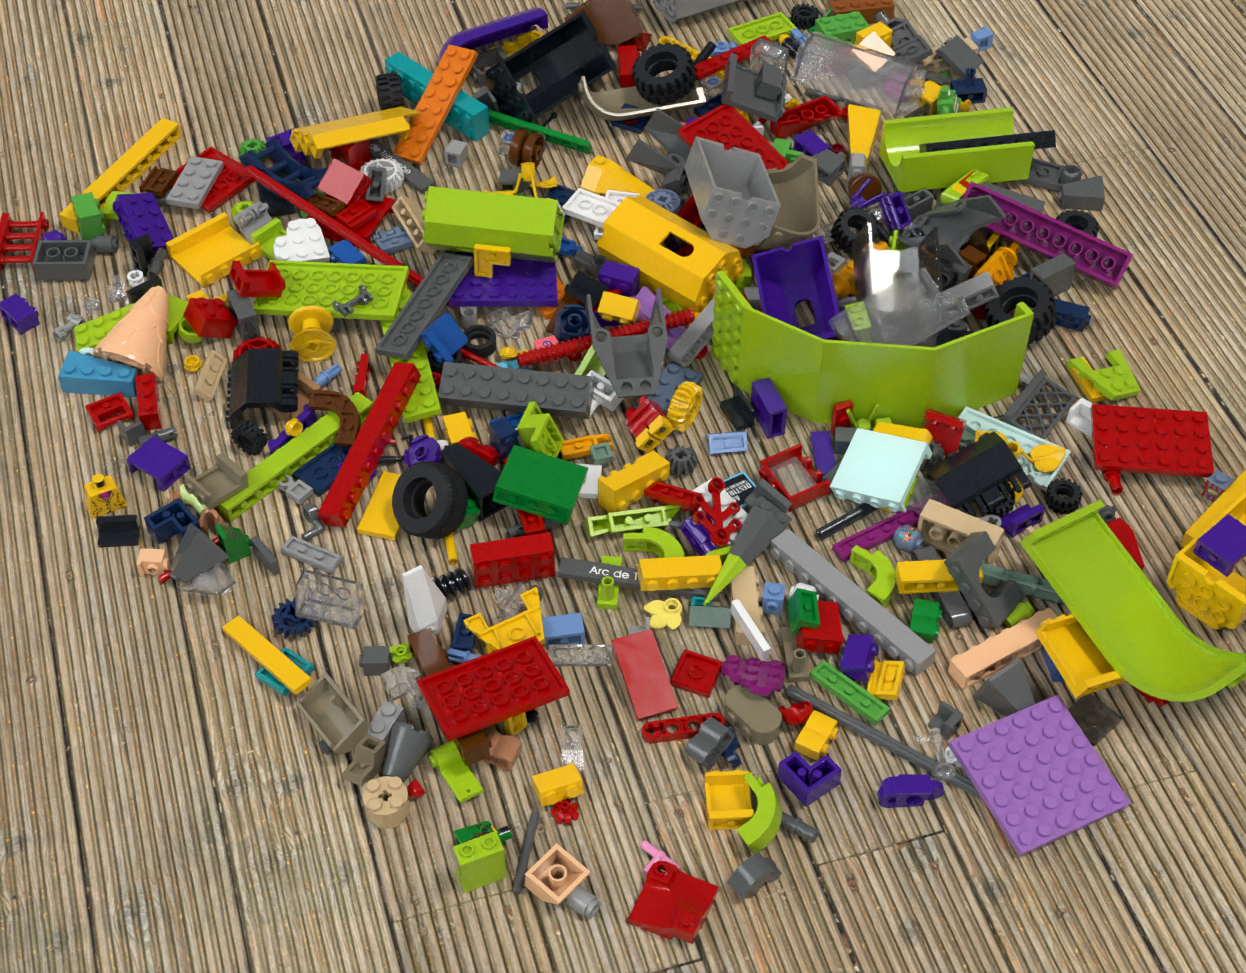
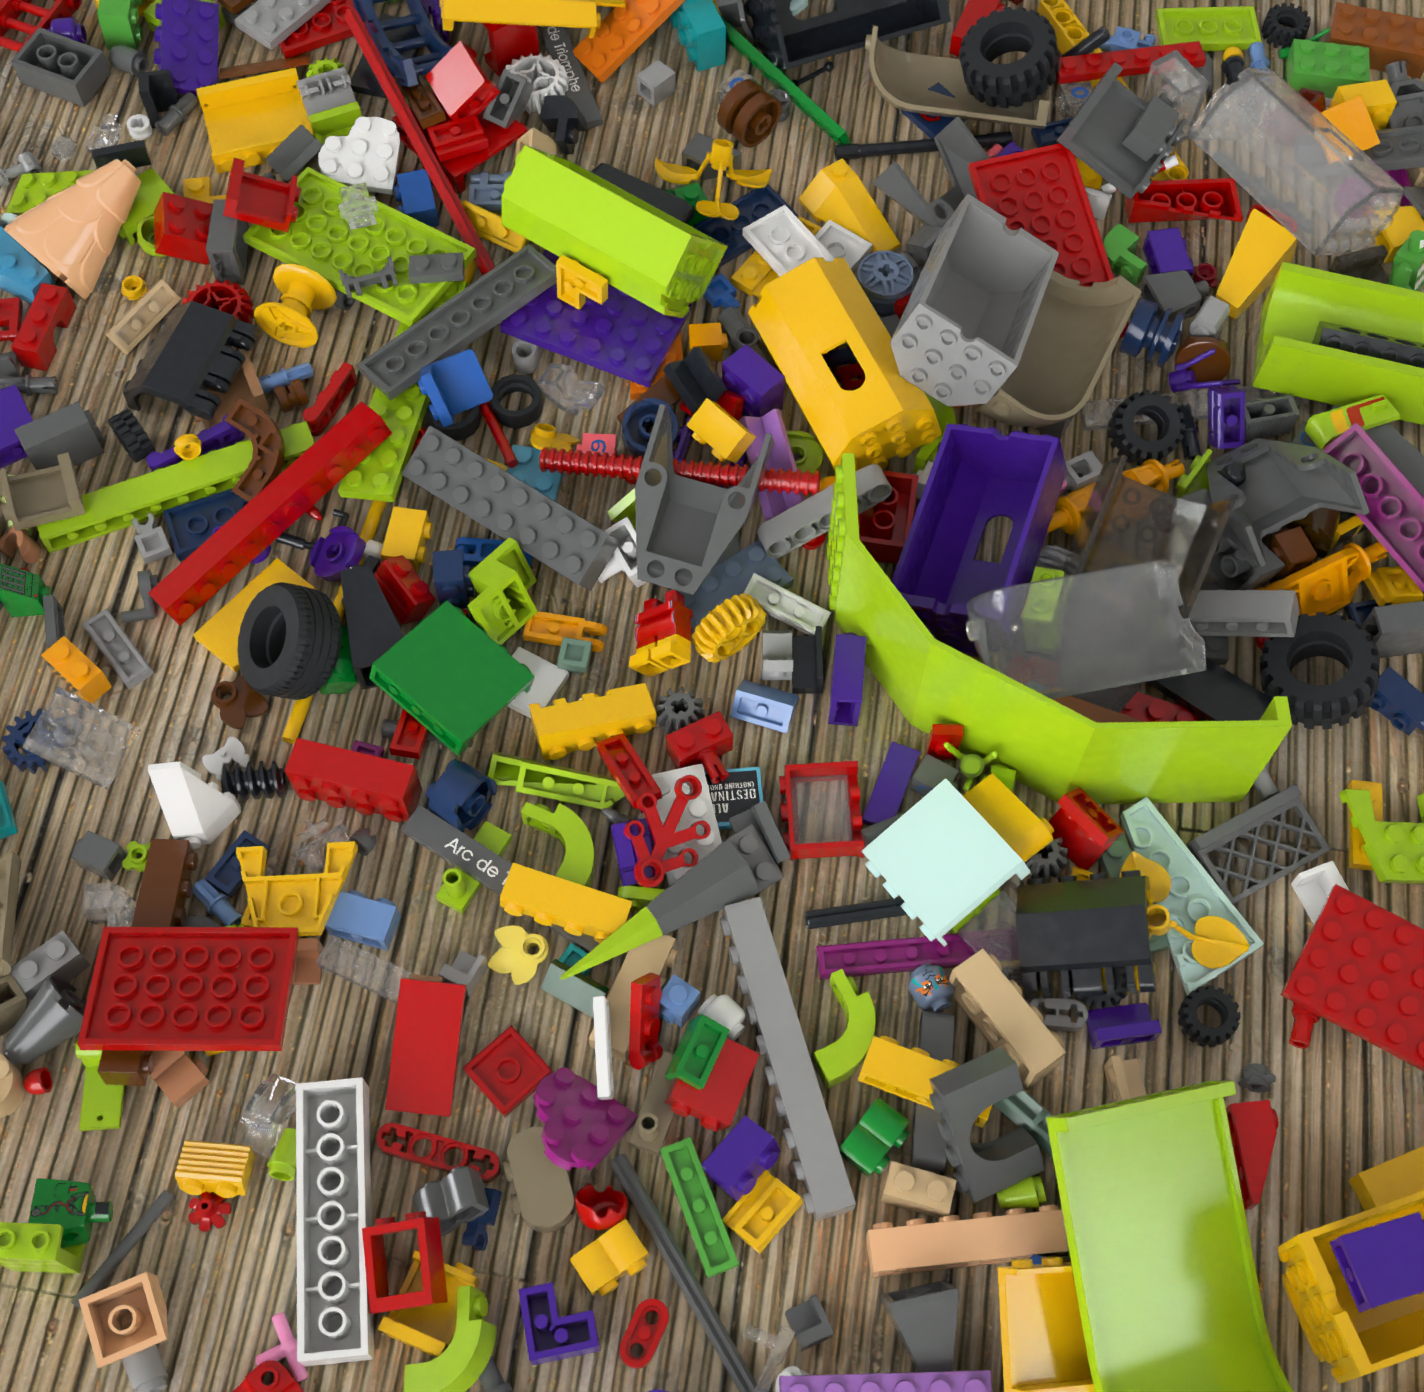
camera: 25 degrees right, 15 degrees up
(200, 219) = (264, 66): none -> dark orange sticker
(203, 451) = (61, 433): none -> dark grey brick
(255, 255) = (294, 153): none -> dark grey panel
(289, 568) = (76, 670): none -> light orange brick
(323, 265) = (358, 206): none -> clear brick
(337, 383) = (291, 395): none -> reddish brown wheel
(392, 282) = (436, 268): none -> dark grey plate
(408, 552) = (242, 703): none -> reddish brown plate
(410, 257) = (490, 228): none -> yellow tile
(413, 186) = (565, 119): none -> black brick
(570, 269) = (709, 339): none -> light orange brick
(581, 232) = (753, 275): none -> yellow plate
(582, 542) = (461, 795): none -> dark blue brick
(591, 154) = (856, 150): none -> black piece
(595, 765) = (283, 1159): none -> lime cone
(648, 780) = (331, 1212): none -> white brick
(703, 468) = (702, 744): none -> red brick
(712, 387) = (787, 605): none -> white tile
(717, 796) = (430, 1258): none -> red window
(718, 412) = (777, 655): none -> light grey brick
(764, 610) = (645, 1021): none -> red plate
(831, 184) = (1152, 332): none -> dark blue wheel
(858, 765) = (644, 1334): none -> red plate
(963, 633) = (918, 1190): none -> tan brick
(1030, 261) = (1393, 586): none -> yellow plate

